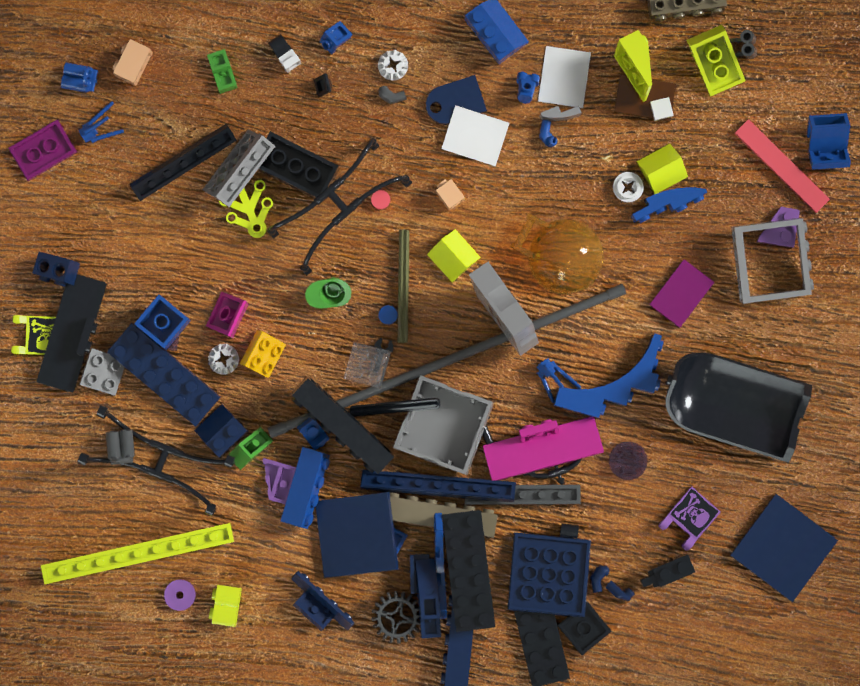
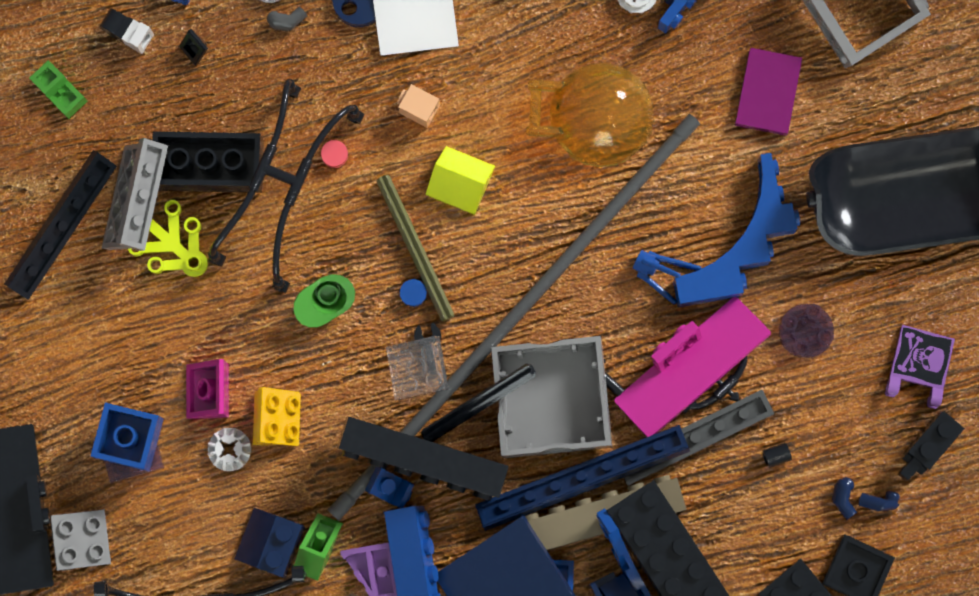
camera: 20 degrees left, 5 degrees down
(164, 374) = (160, 505): dark blue plate -> none
(504, 308) = (557, 208): light grey tile -> none
(549, 575) = (779, 524): dark blue tile -> none

